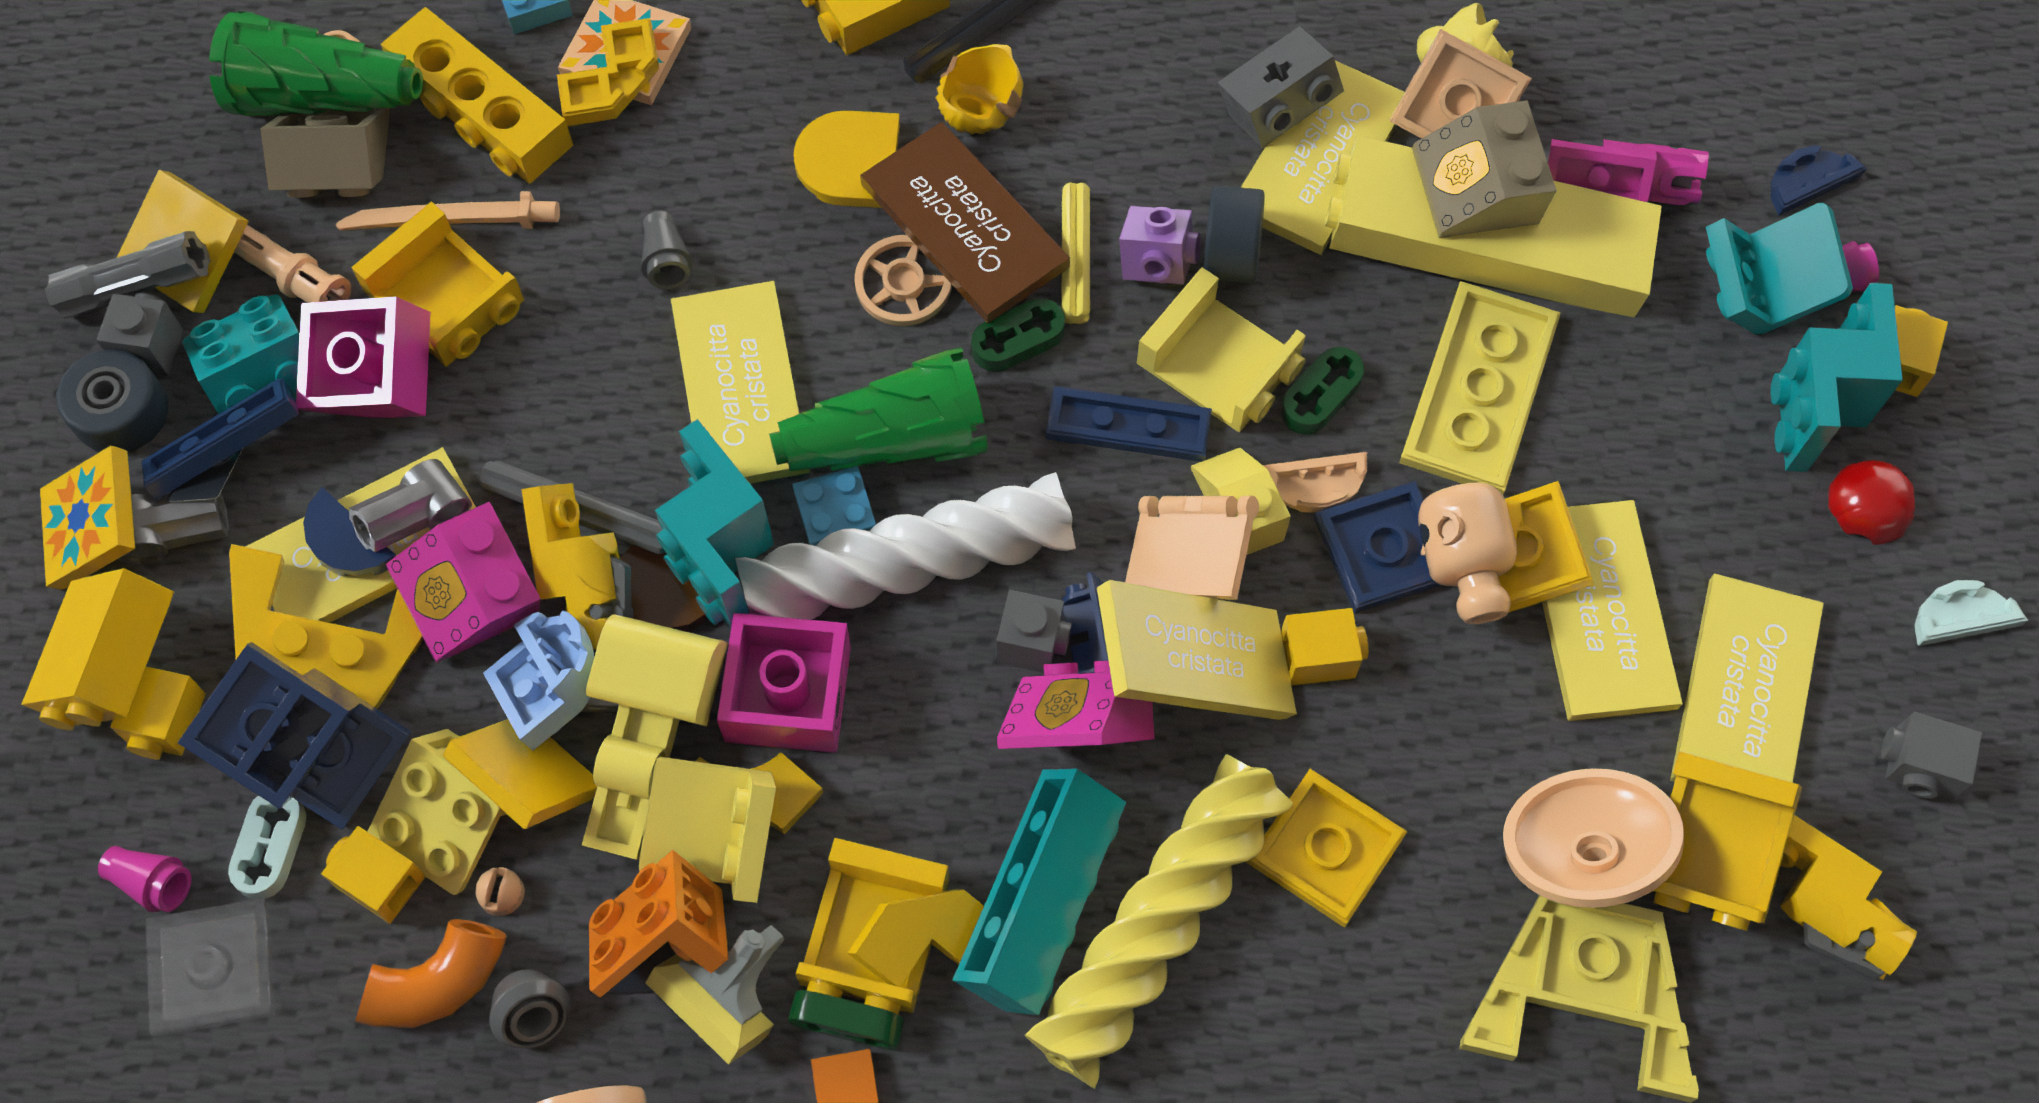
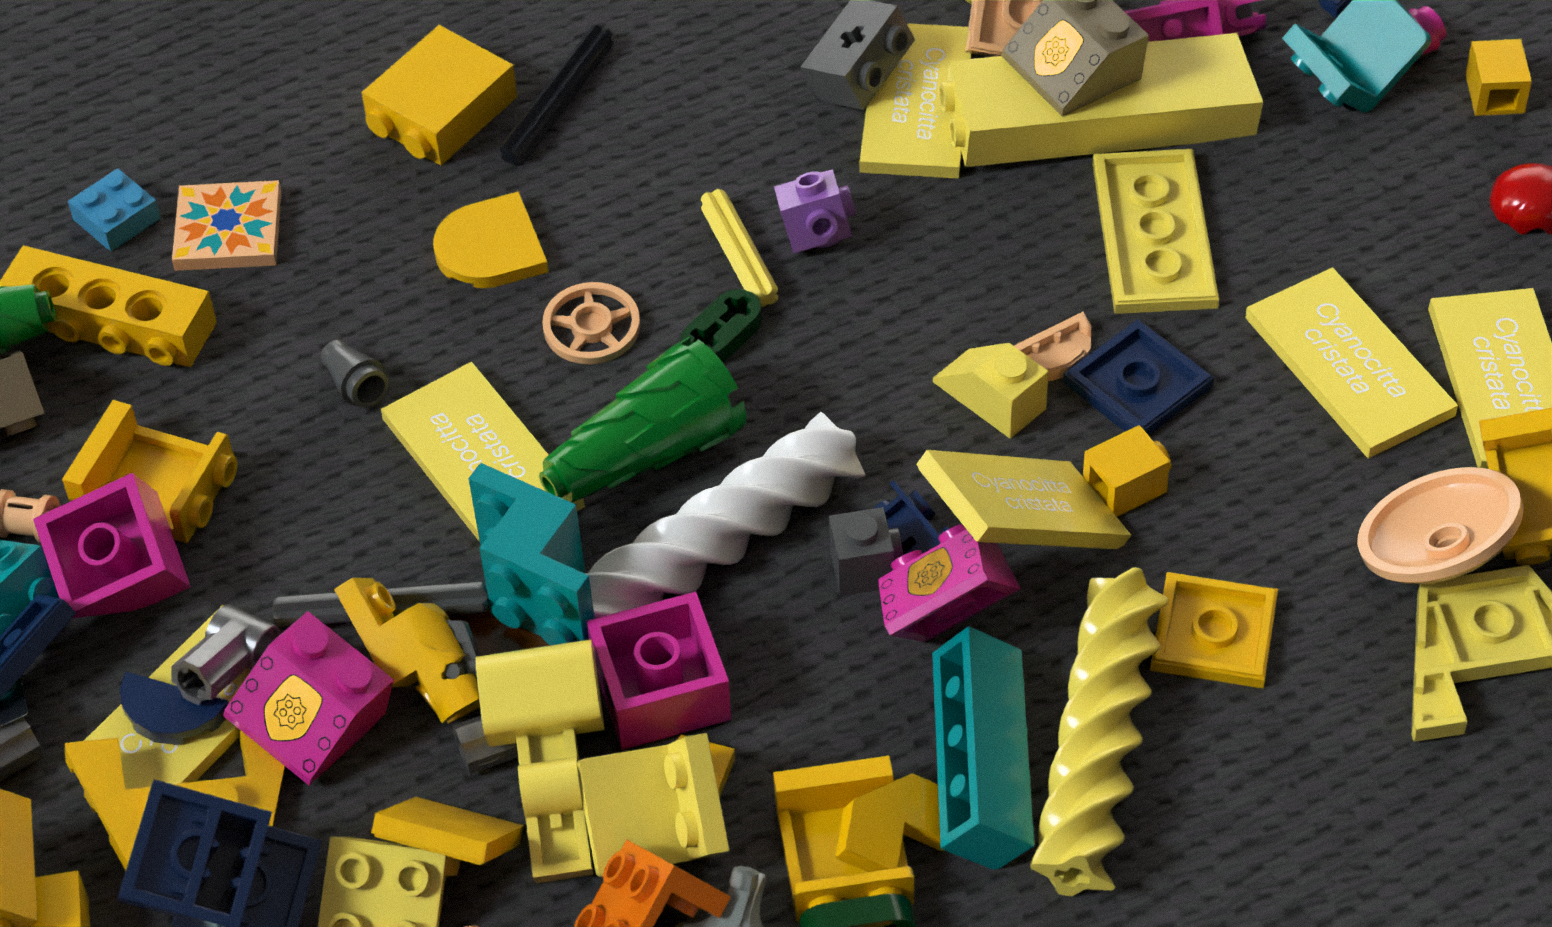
camera: 20 degrees left, 15 degrees down
(523, 211) = (199, 389): light nougat sword -> none
(543, 676) = (429, 744): light blue slope -> none
(608, 90) = (242, 236): yellow tile -> none
(833, 504) = (620, 516): dark azure piece -> none
(965, 222) = (627, 252): reddish brown tile -> none
(980, 89) = (587, 144): yellow hair -> none
(1128, 423) = (858, 365): dark blue tile -> none
(1192, 544) = (975, 419): light nougat piece -> none
(1218, 355) = (910, 284): light yellow panel -> none
(1234, 233) = (879, 178): black wheel -> none
(1331, 397) = (1008, 276): dark green beam -> none
(1469, 546) = (1215, 341): light nougat piece -> none
(1547, 549) = (1272, 336): yellow tile -> none
(1837, 378) = (1453, 110): teal bracket -> none

